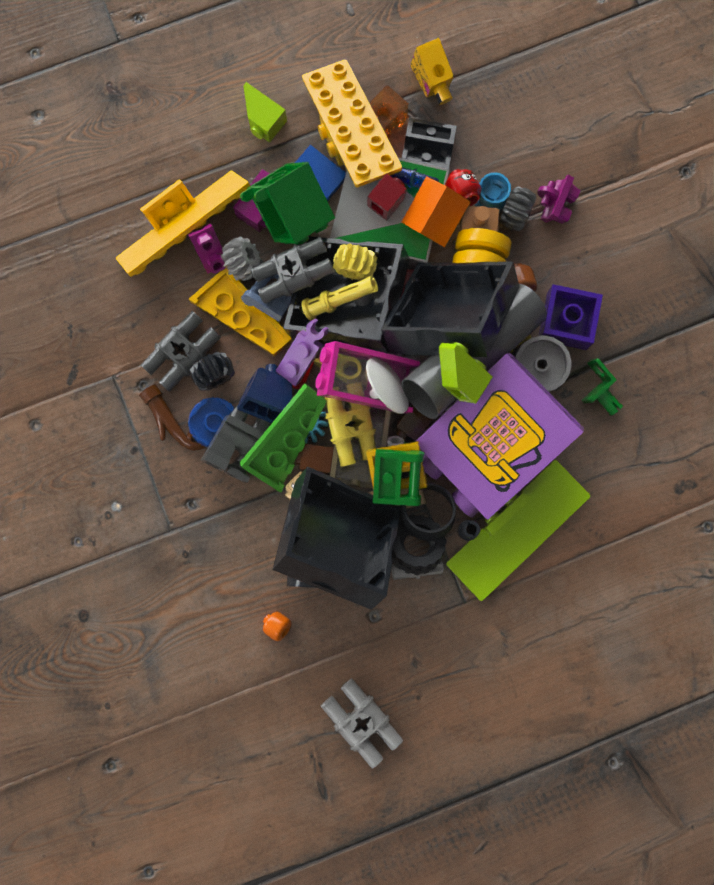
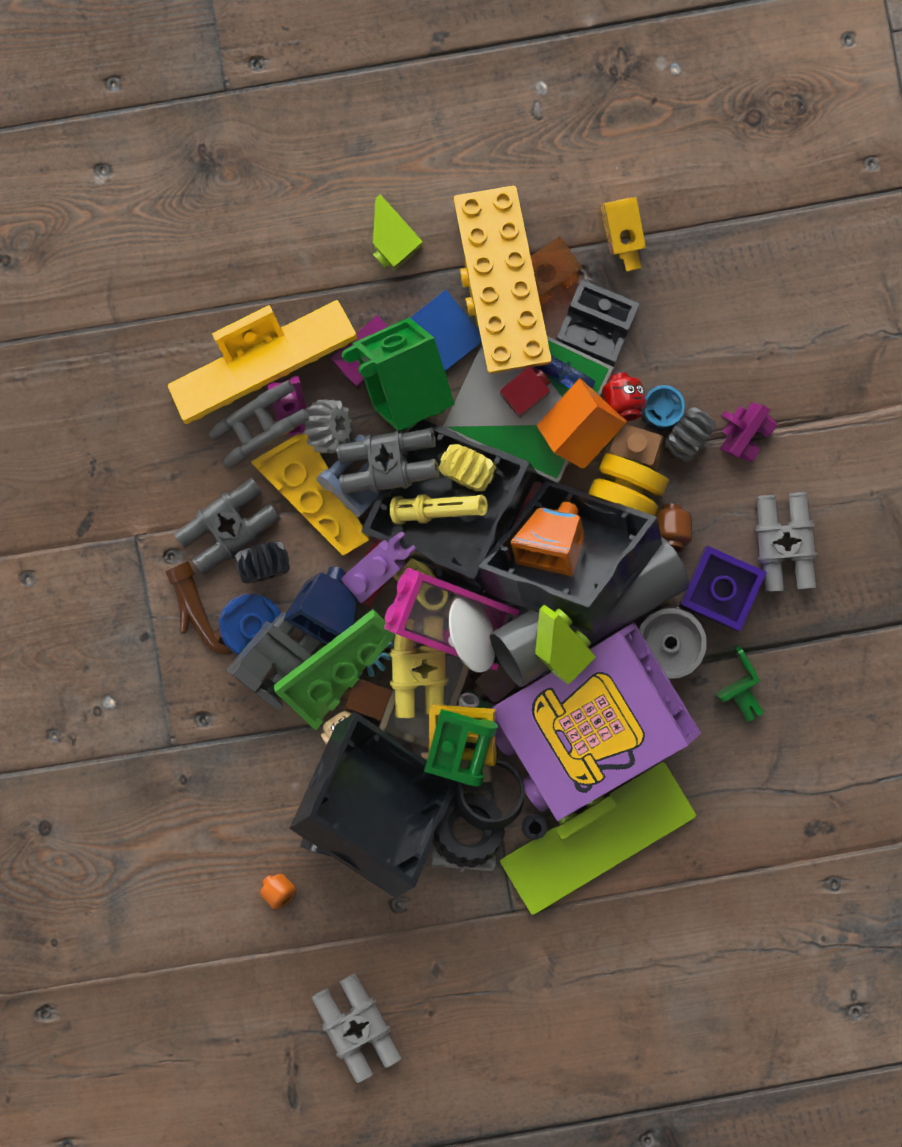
camera: 15 degrees right, 5 degrees up
(197, 265) = (271, 430): none -> dark grey piece
(432, 302) = (550, 540): none -> orange torso
(615, 265) = (799, 529): none -> light grey pin

